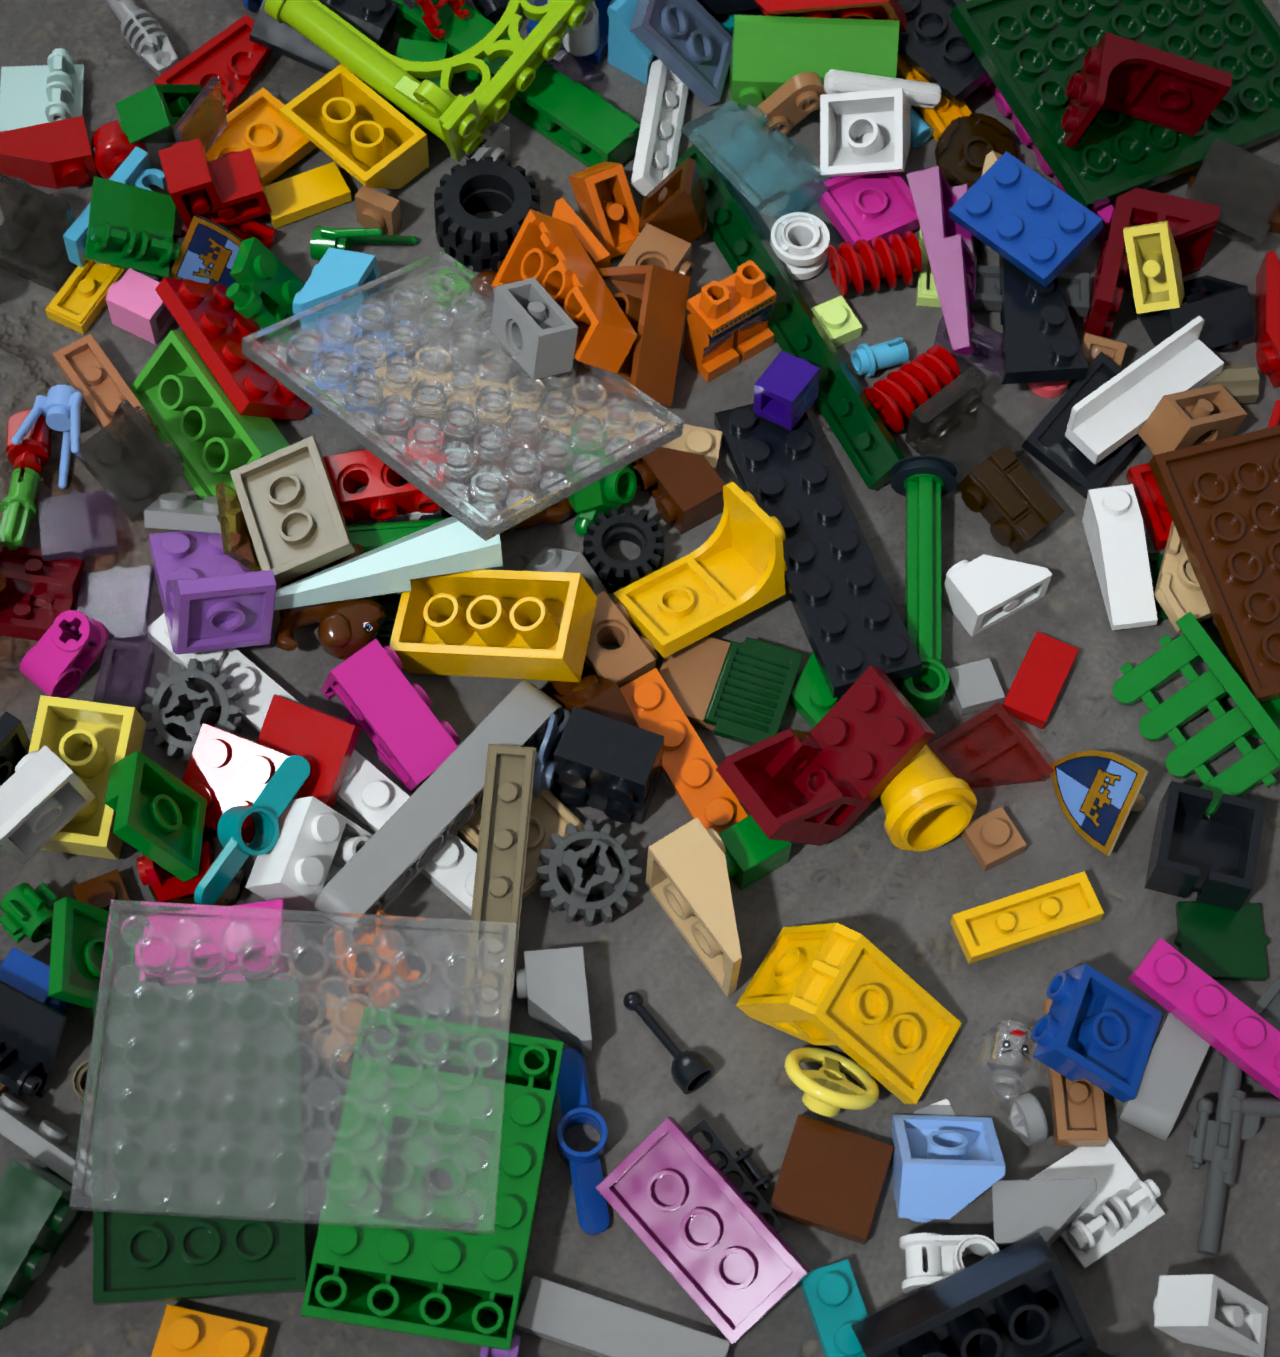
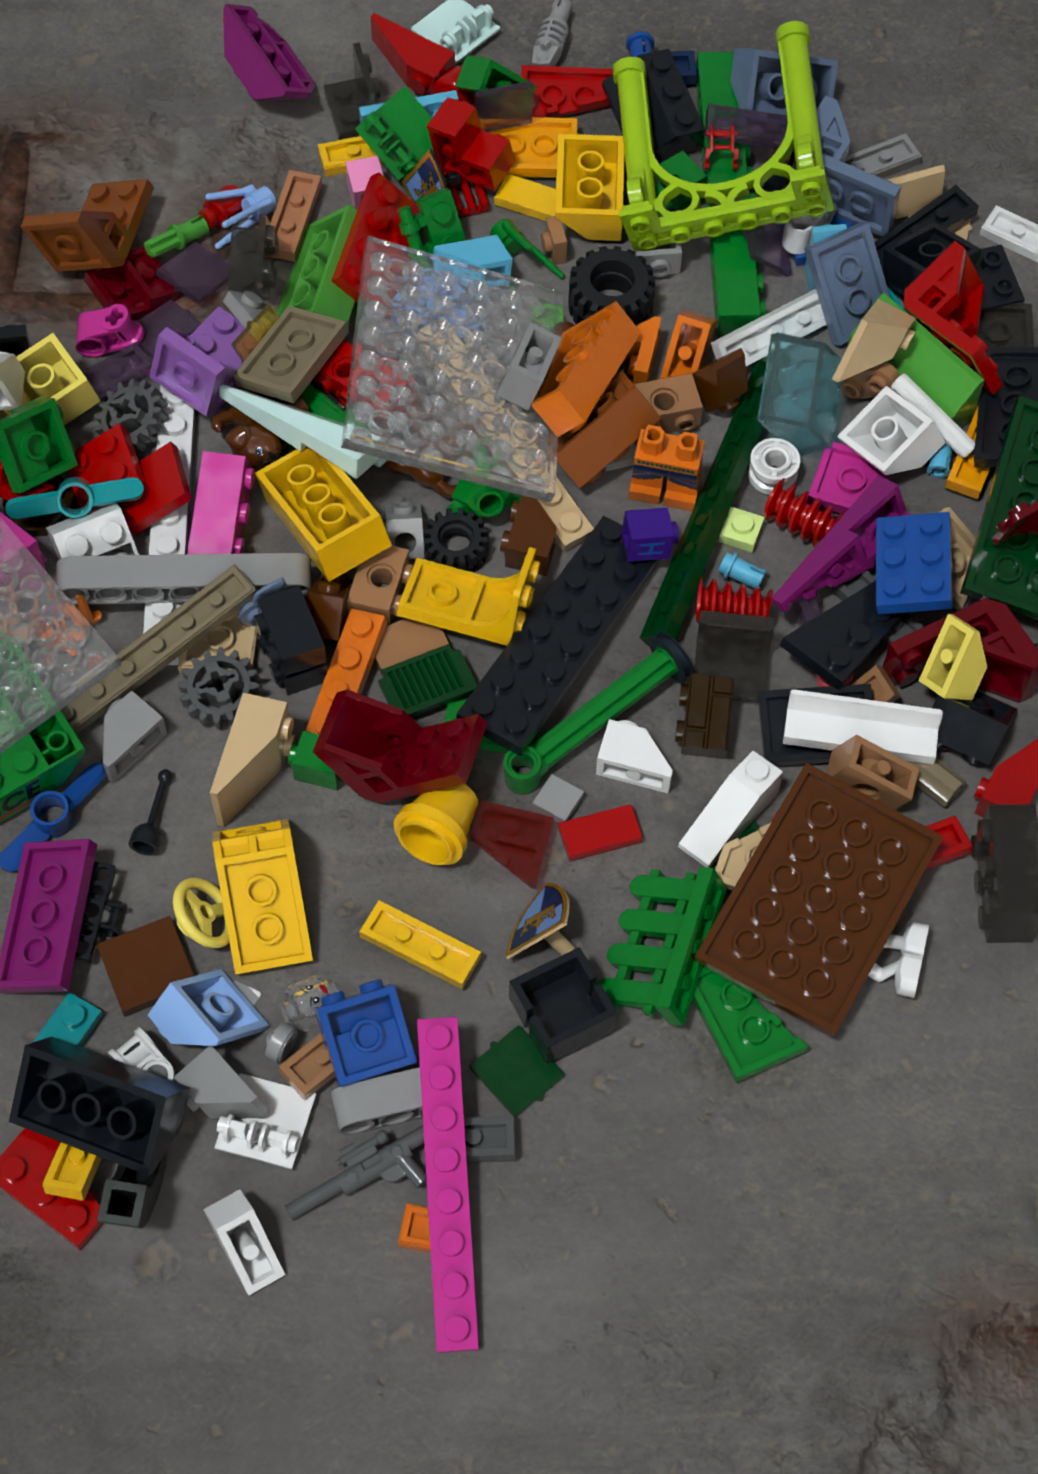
camera: 50 degrees right, 0 degrees up
(778, 62) = (876, 340): none -> tan slope
(966, 143) = (961, 494): dark brown tile -> none
(993, 839) = (459, 888): medium nougat plate -> none

